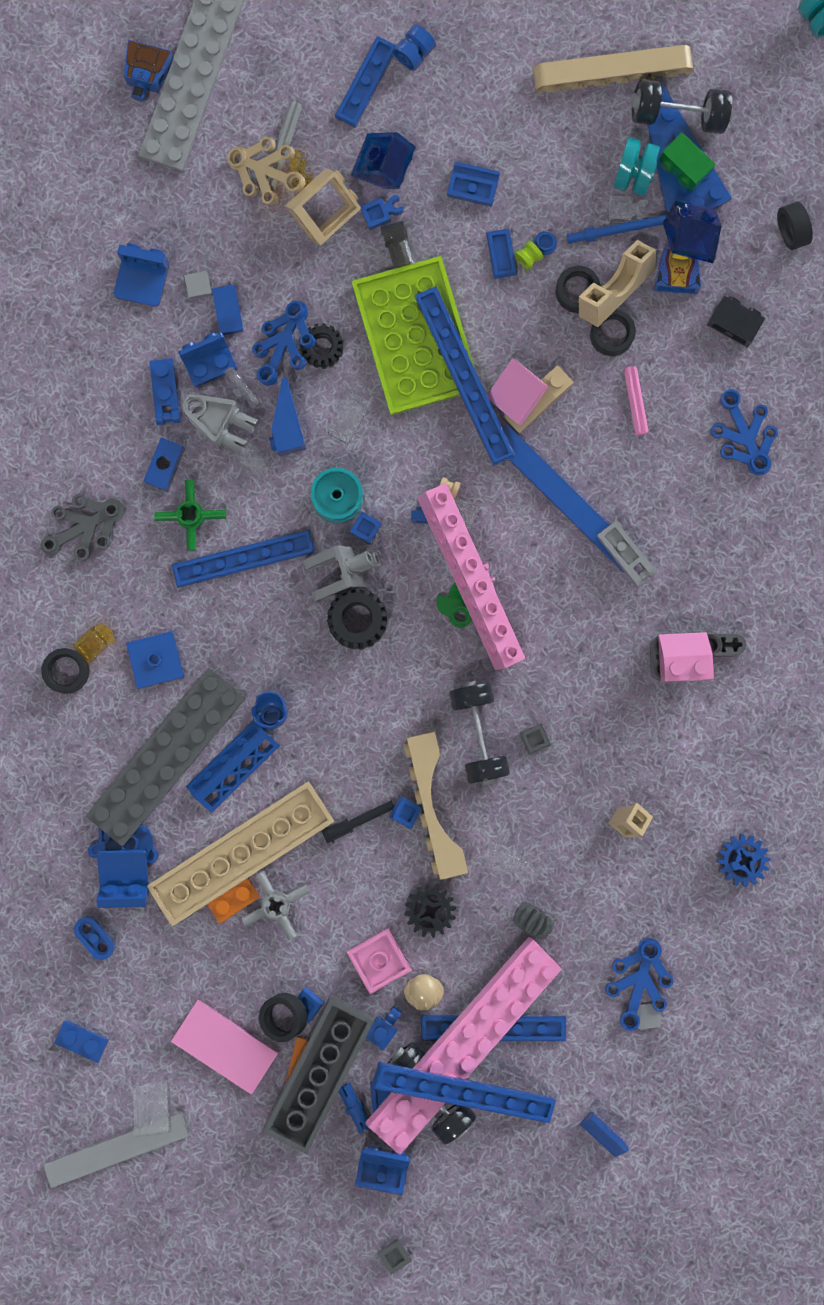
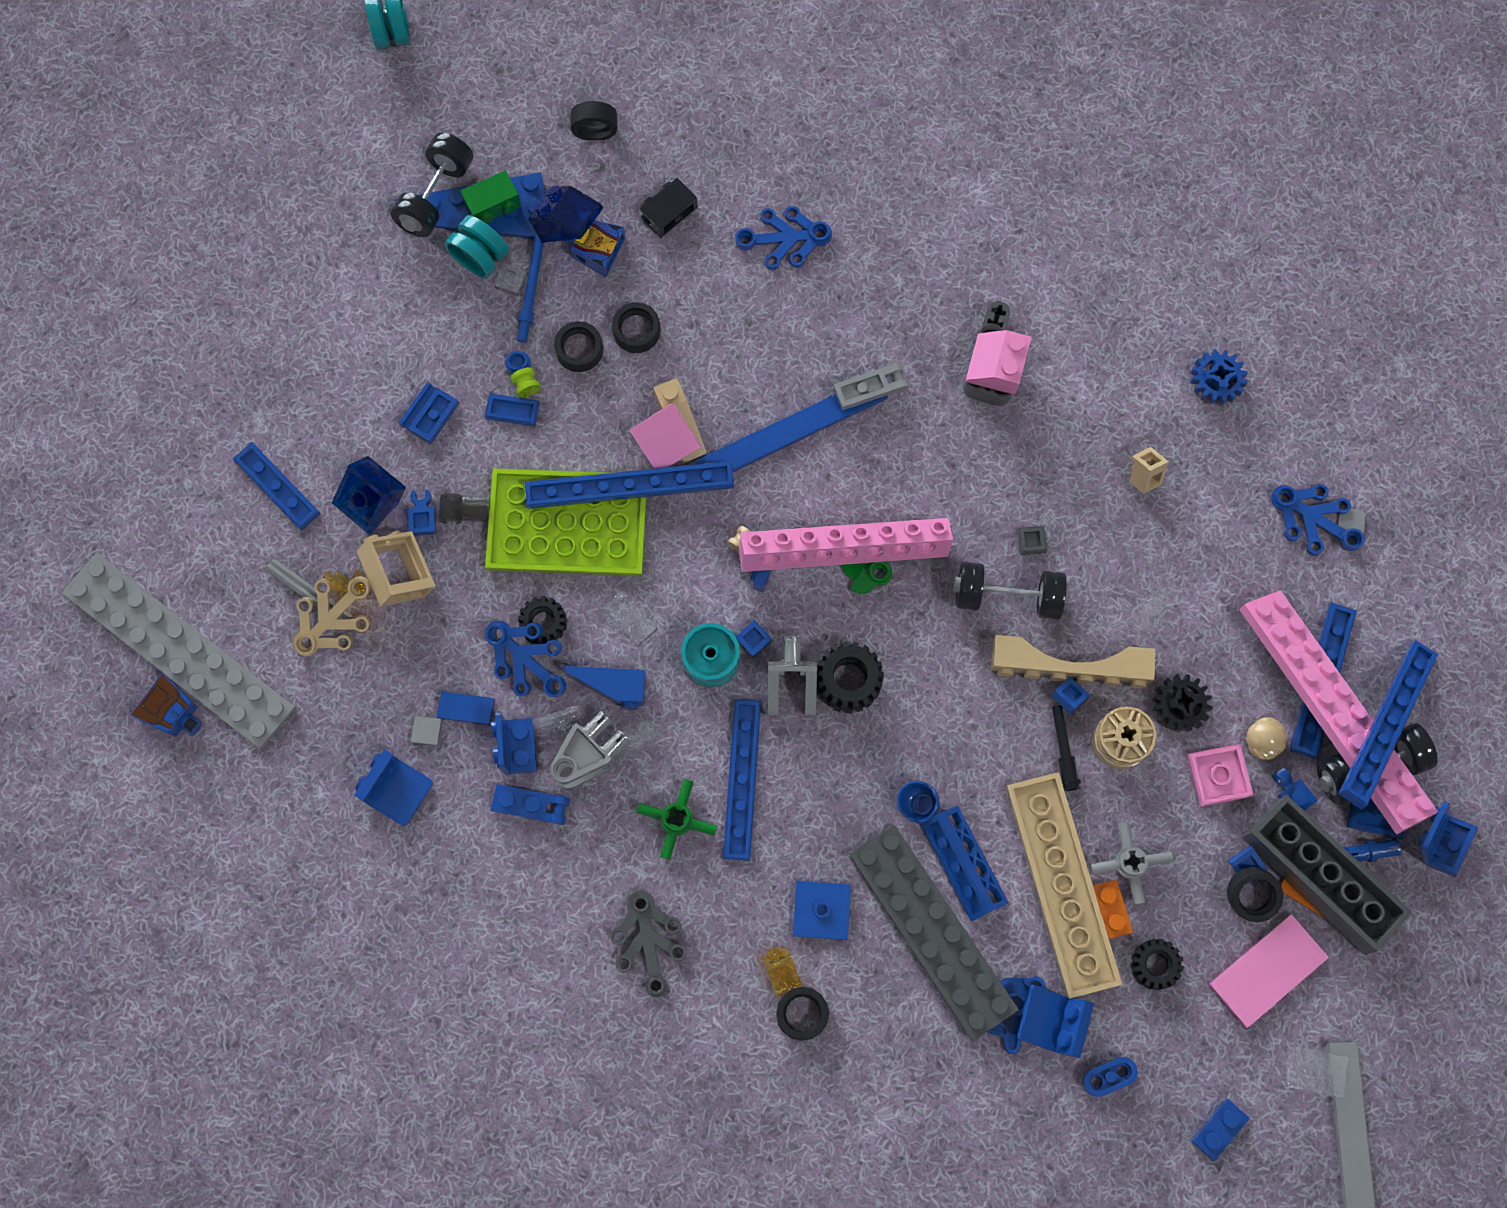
camera: 70 degrees left, 10 degrees down
(163, 478) = (622, 842): blue piece -> none
(188, 961) = (1173, 960): none -> black tyre
(365, 867) = (1121, 752): none -> tan wheel
(417, 44) = (261, 423): blue wheel -> none
(533, 920) = (1223, 599): dark grey gear -> none
(601, 301) = (582, 287): tan arch -> none
(604, 1135) = (1464, 603): blue slope -> none
(612, 68) = (363, 240): tan beam -> none
(636, 401) = (714, 329): bright pink axle -> none

